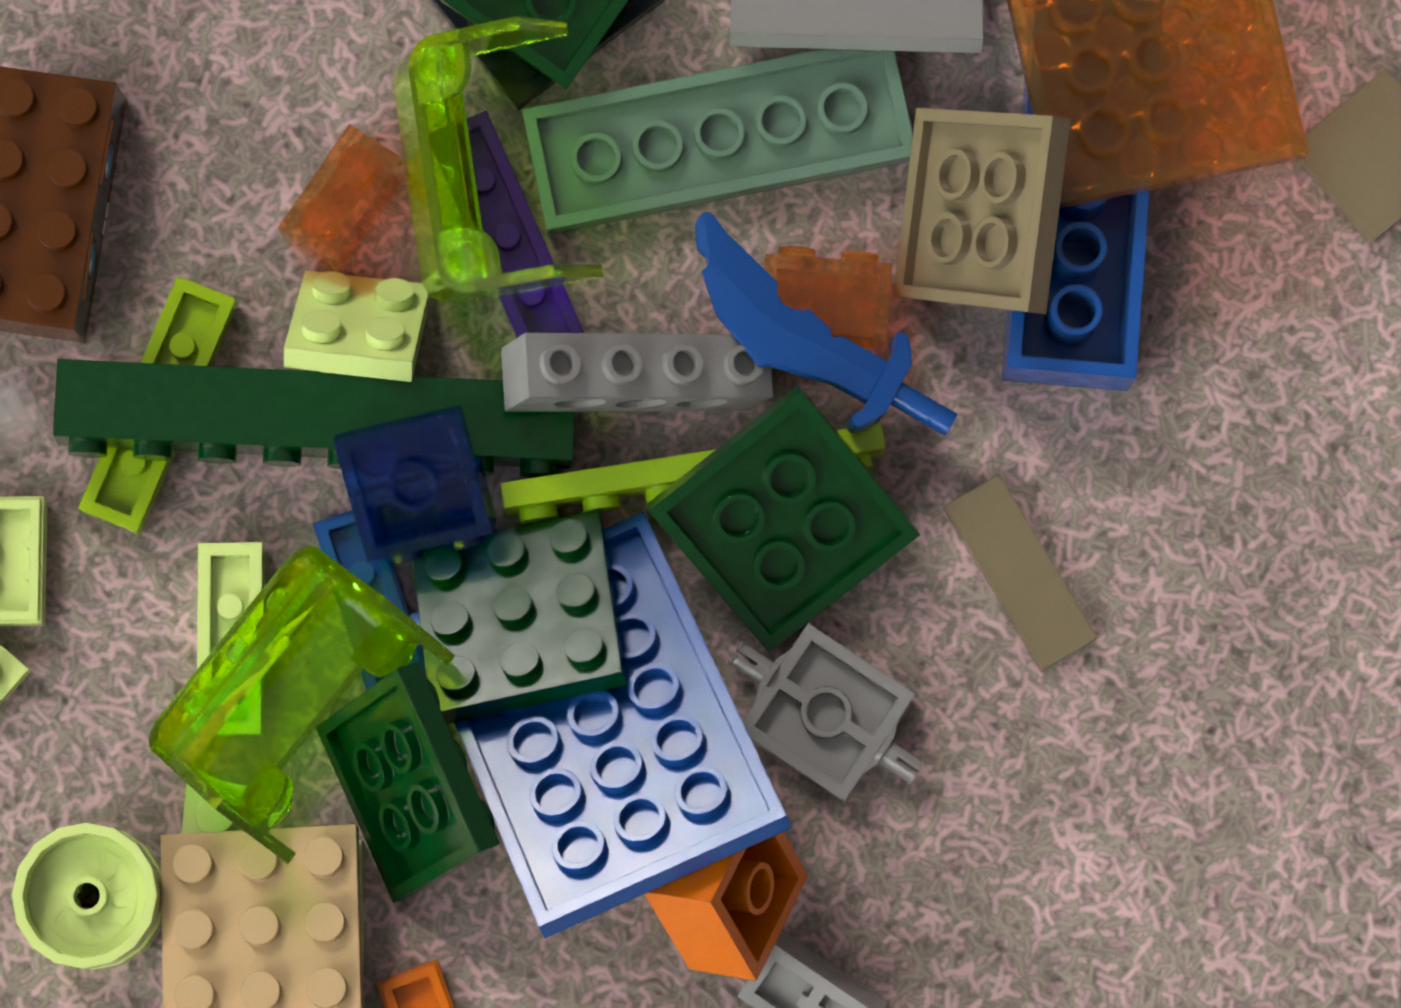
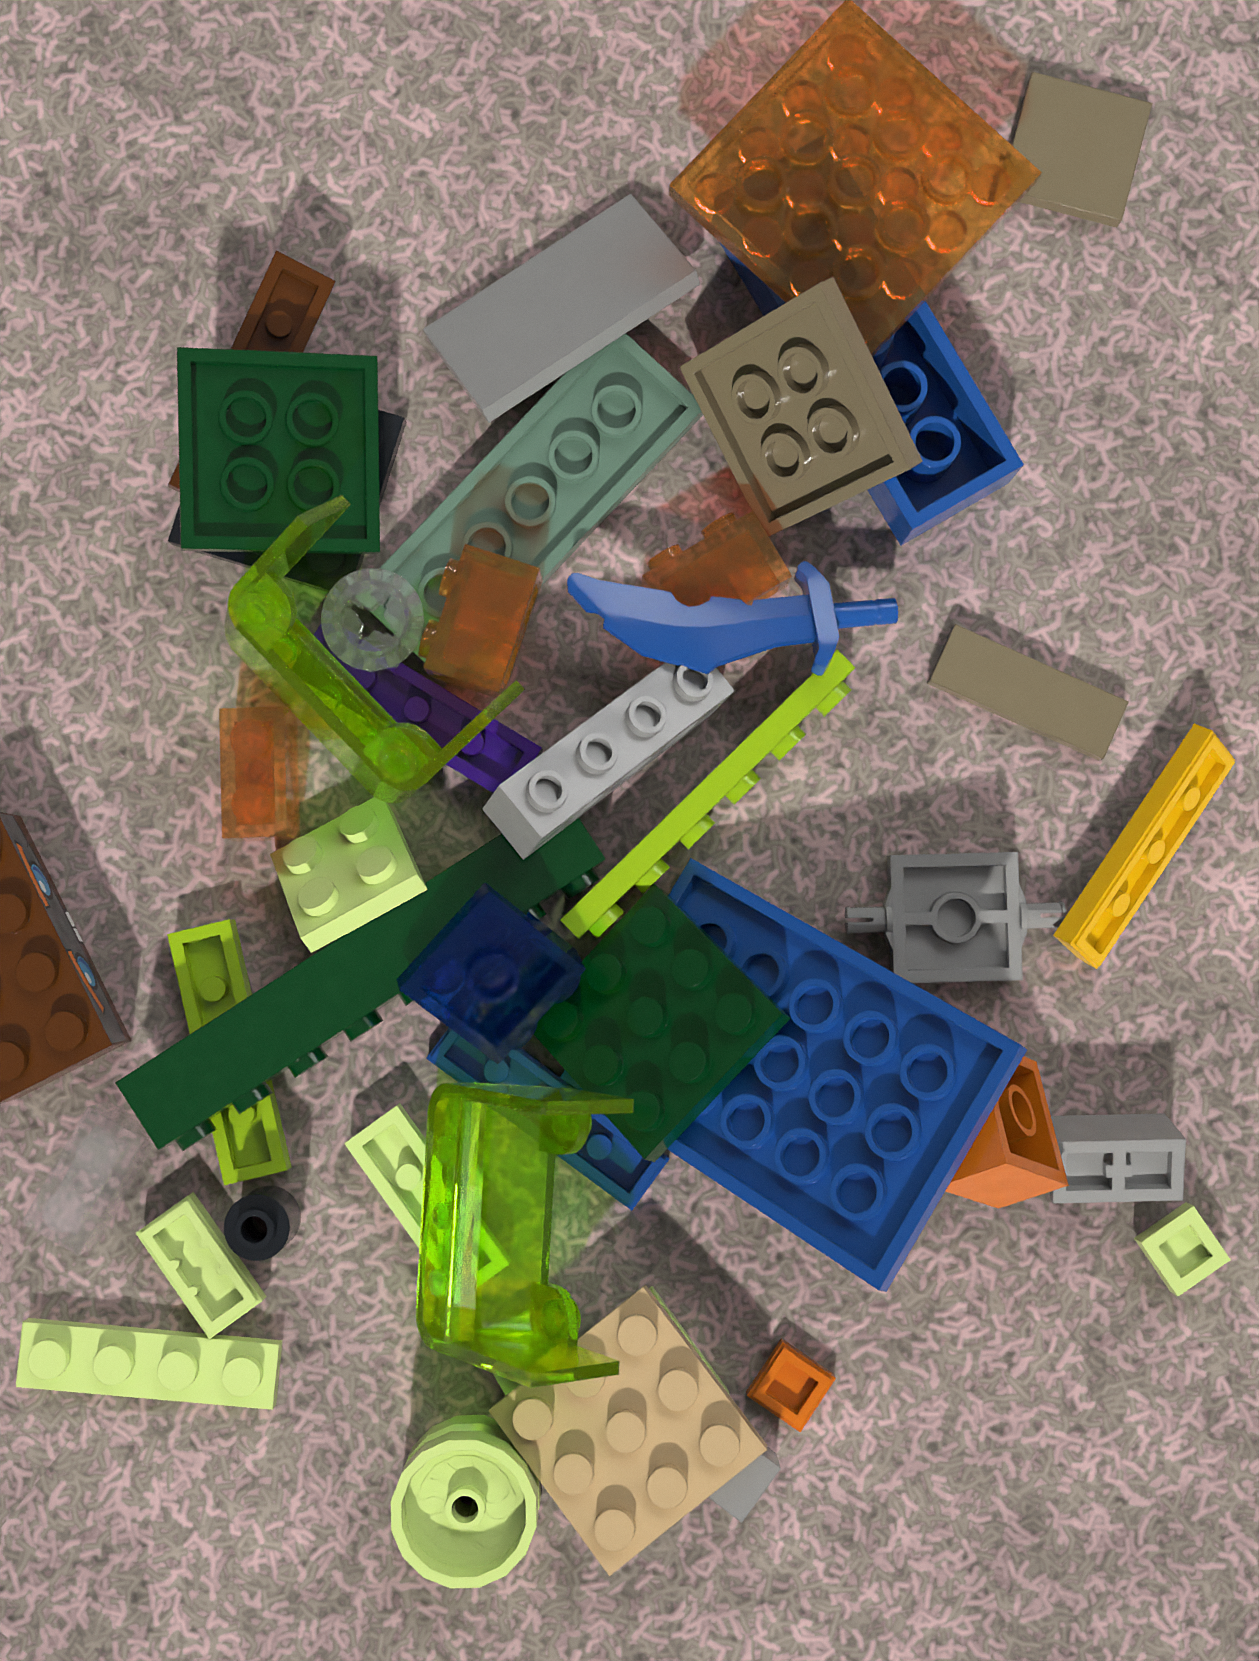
camera: 35 degrees left, 5 degrees up
(103, 570) = (278, 1211): none -> black brick
(407, 782) = (667, 1225): dark green plate -> none
(537, 113) = (369, 590): none -> clear gear
(608, 199) = (481, 620): none -> clear orange brick
(783, 519) = (813, 785): dark green plate -> none
(1025, 765) = (1145, 846): none -> yellow tile

